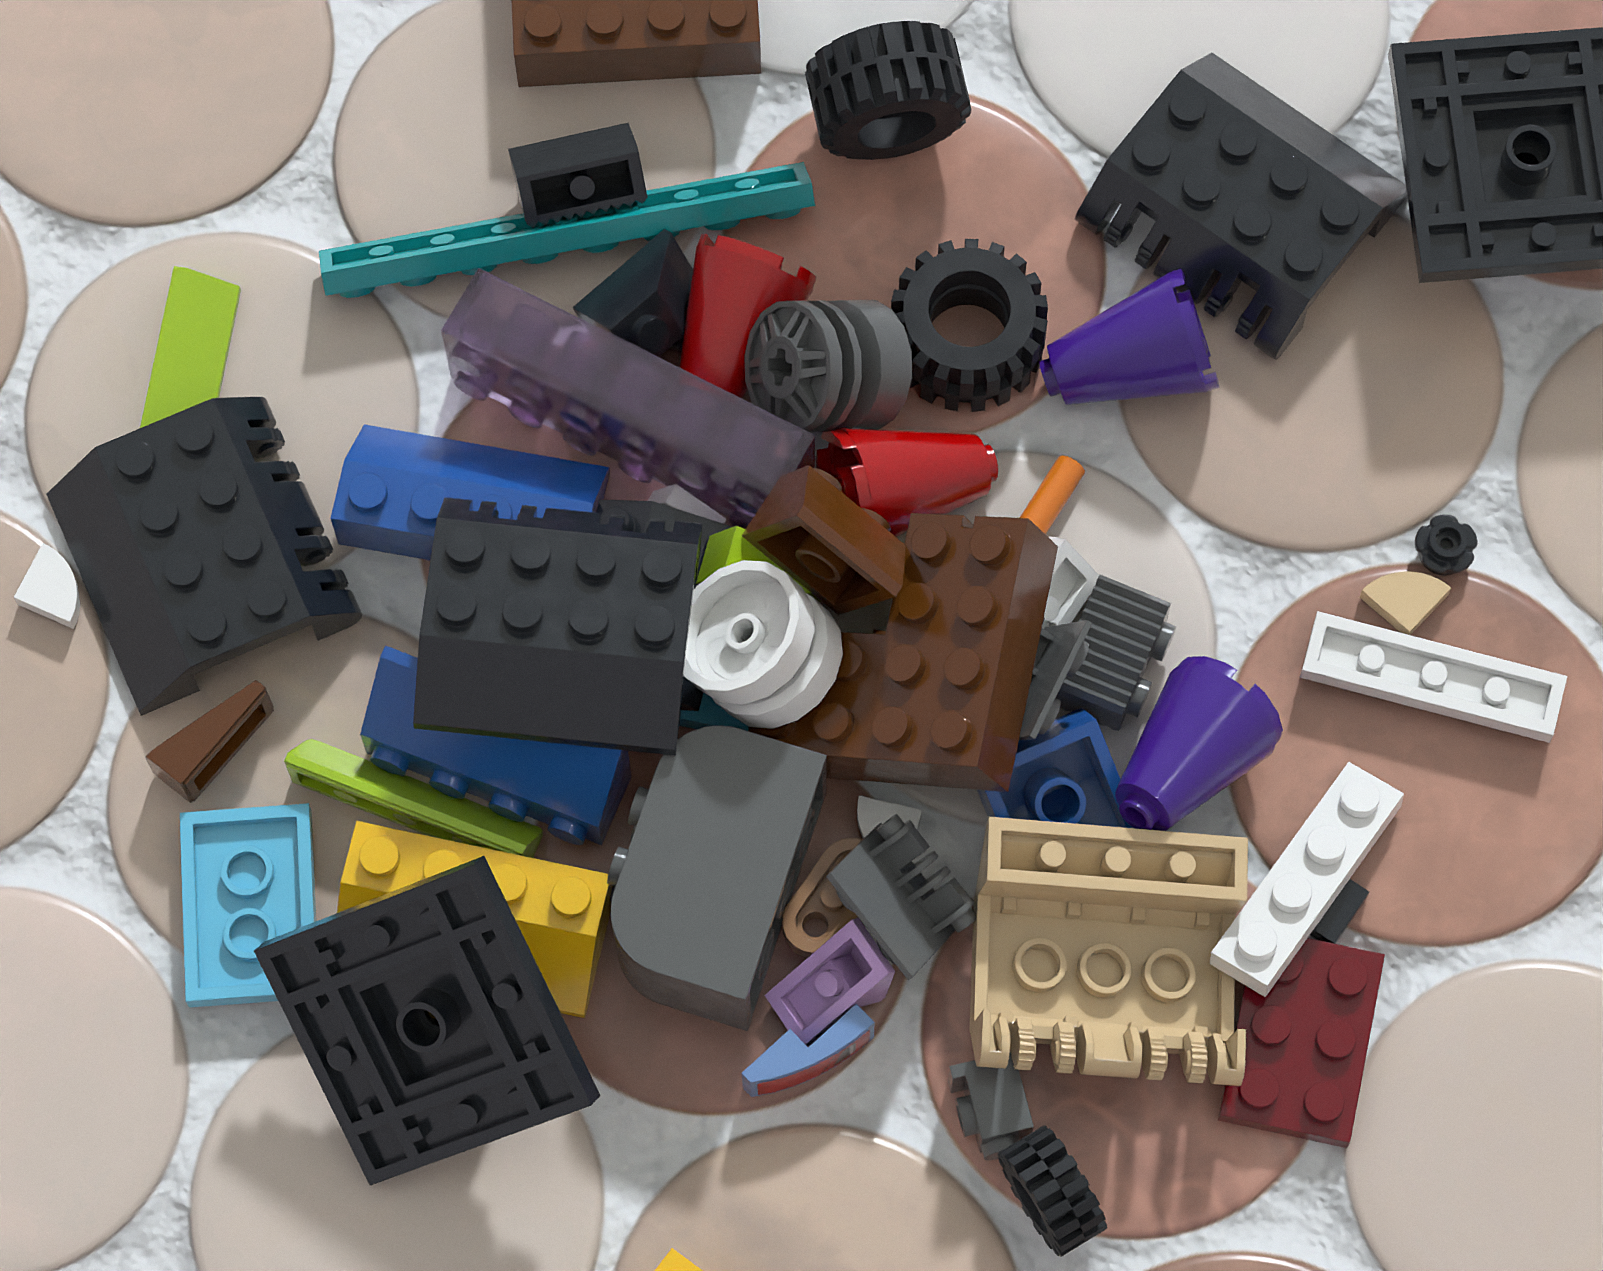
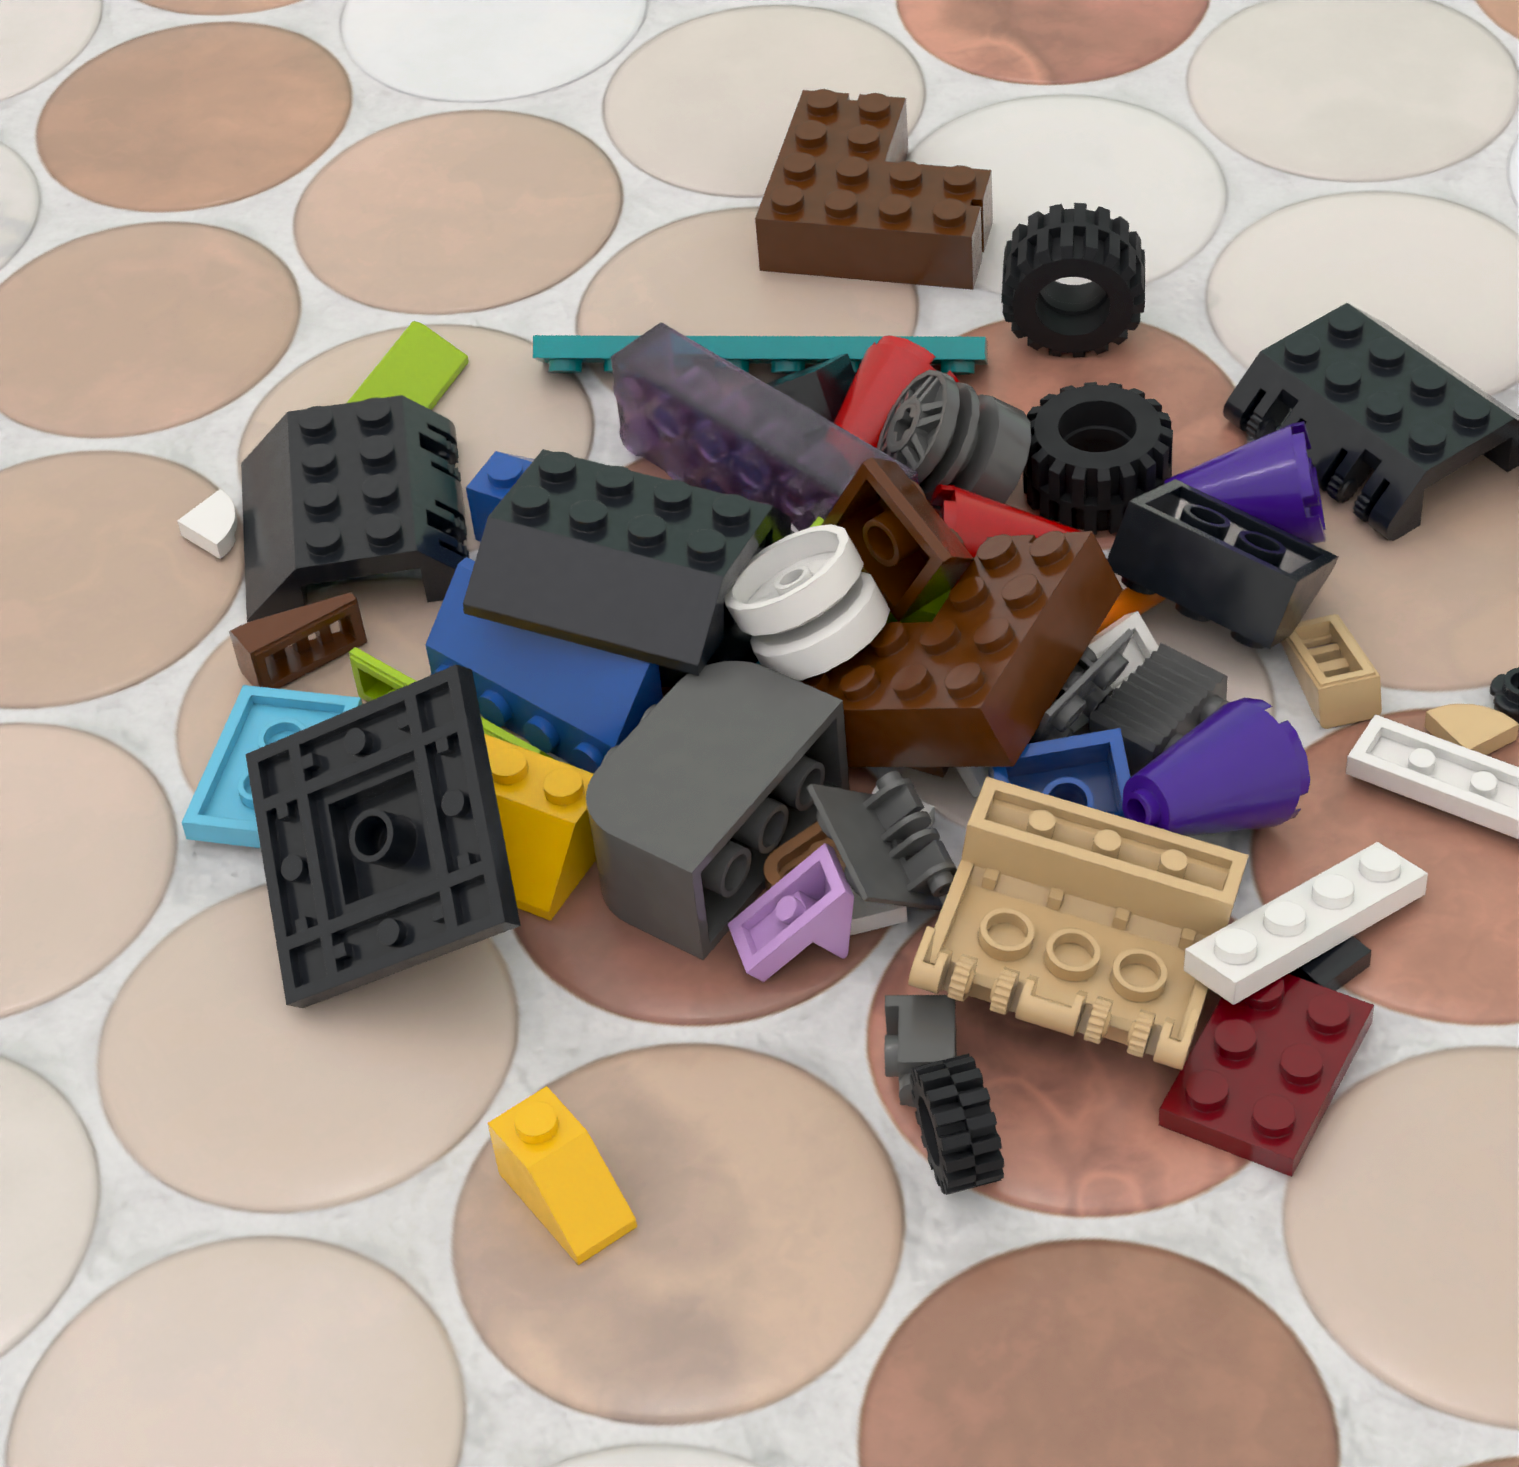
camera: 20 degrees right, 25 degrees down
(578, 174) = (782, 307): black brick -> none
(793, 1063) = (732, 981): medium blue slope -> none
(1133, 460) = (1218, 563): none -> black slope
(1279, 579) = (1334, 677): none -> tan slope

